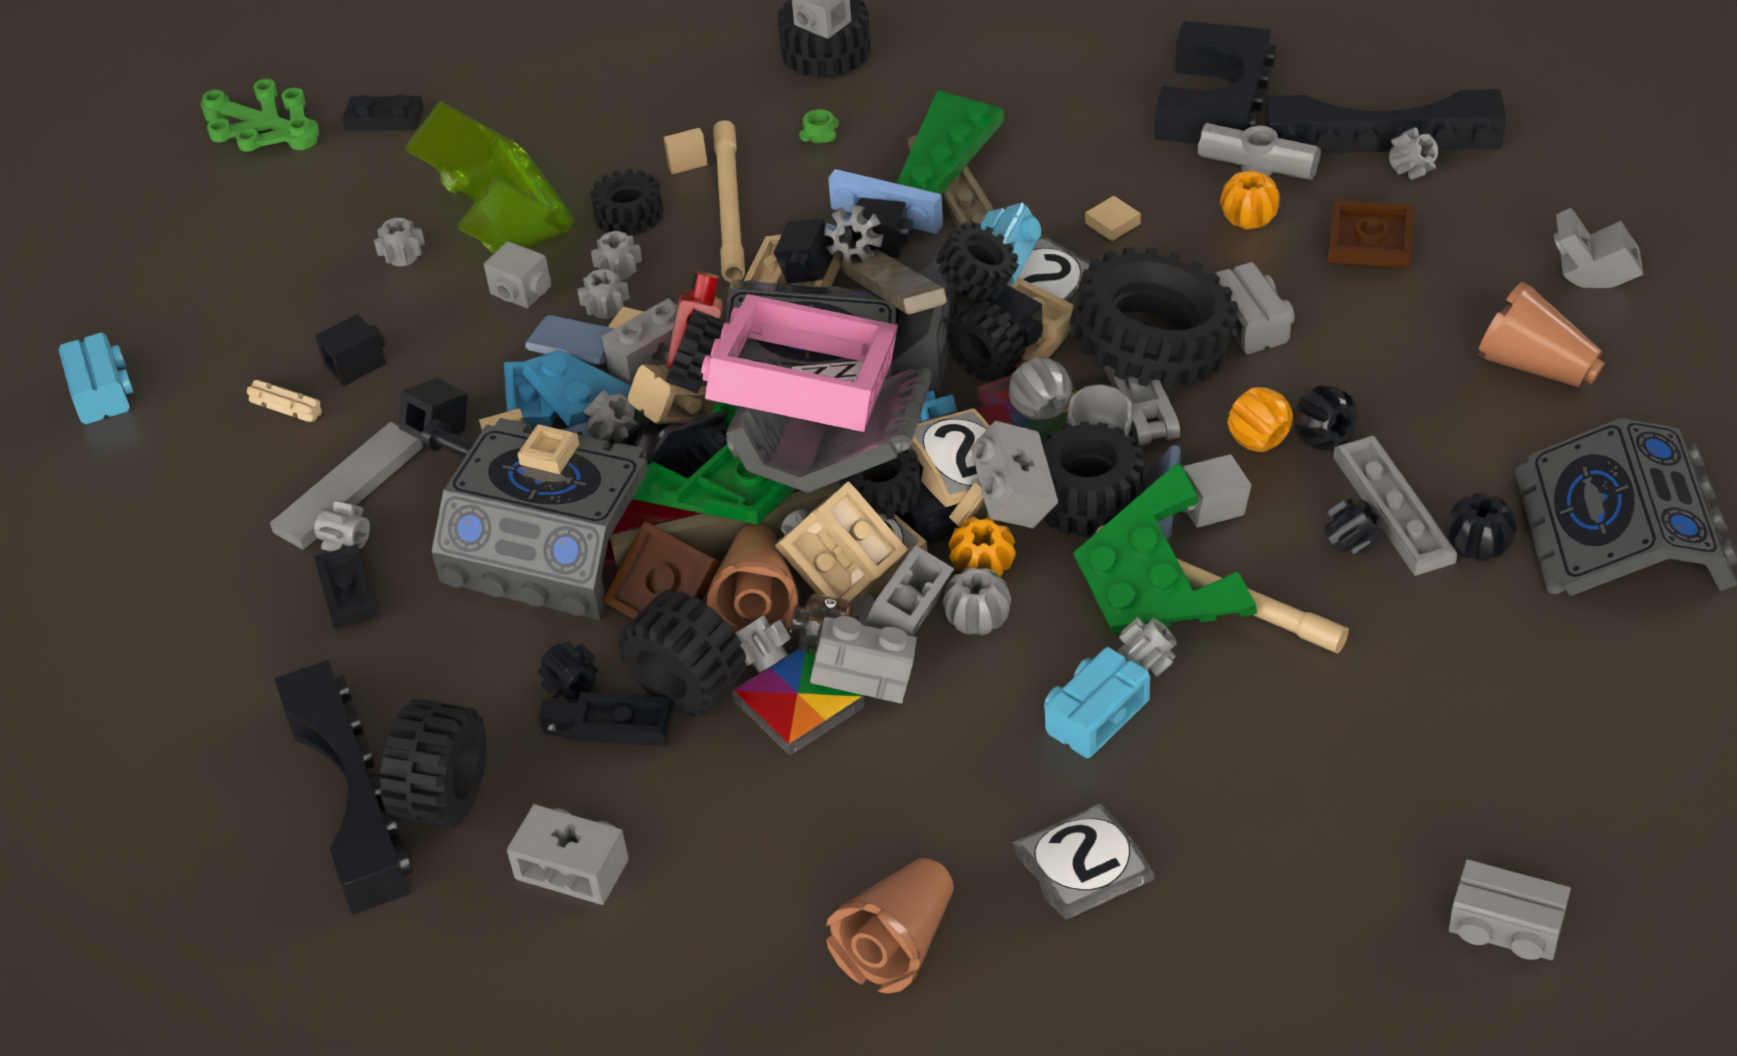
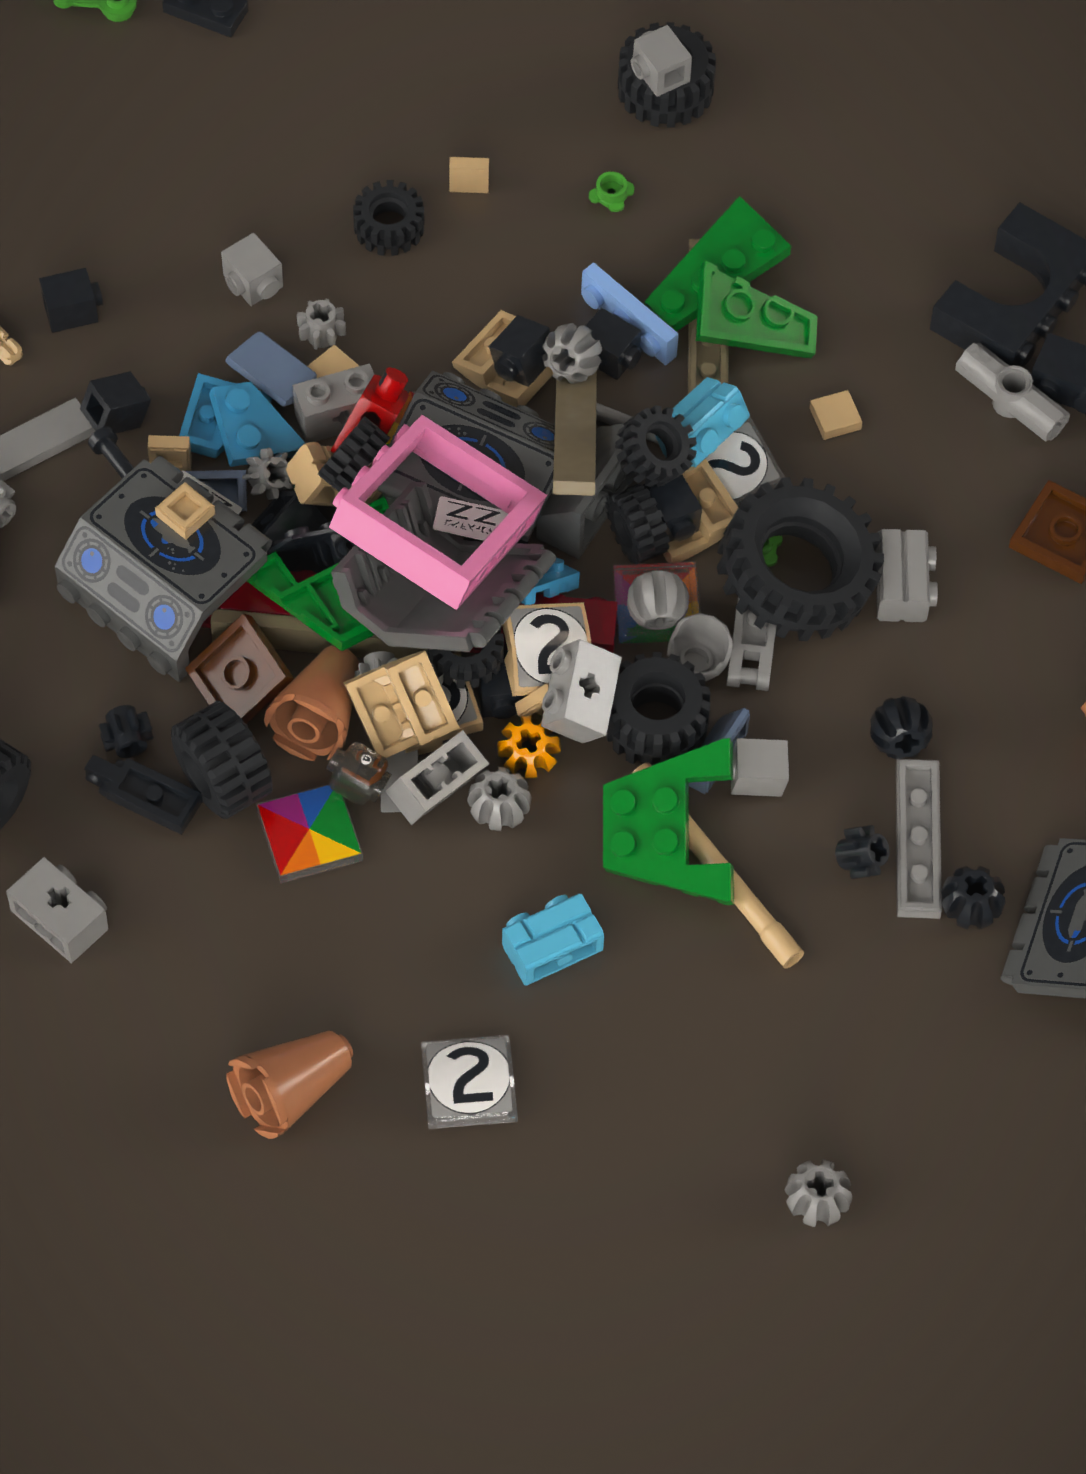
camera: 15 degrees right, 15 degrees up
(399, 242) = (159, 185): light grey gear -> none
(502, 180) = (285, 151): clear neon green windscreen -> none
(617, 253) = (351, 282): light grey gear -> none
(731, 251) = (463, 313): tan piece -> none
(763, 643) = (298, 769): light grey gear -> none
(863, 659) = (372, 823): light grey brick -> none
(993, 169) = (749, 319): none -> green wing
(1148, 645) = (620, 902): light grey gear -> none
(1250, 200) = (970, 449): light orange piece -> none
(1260, 419) = (842, 706): light orange piece -> none
(1502, 829) = (833, 1190): none -> light grey piece
(1509, 910) = (783, 1266): light grey brick -> none

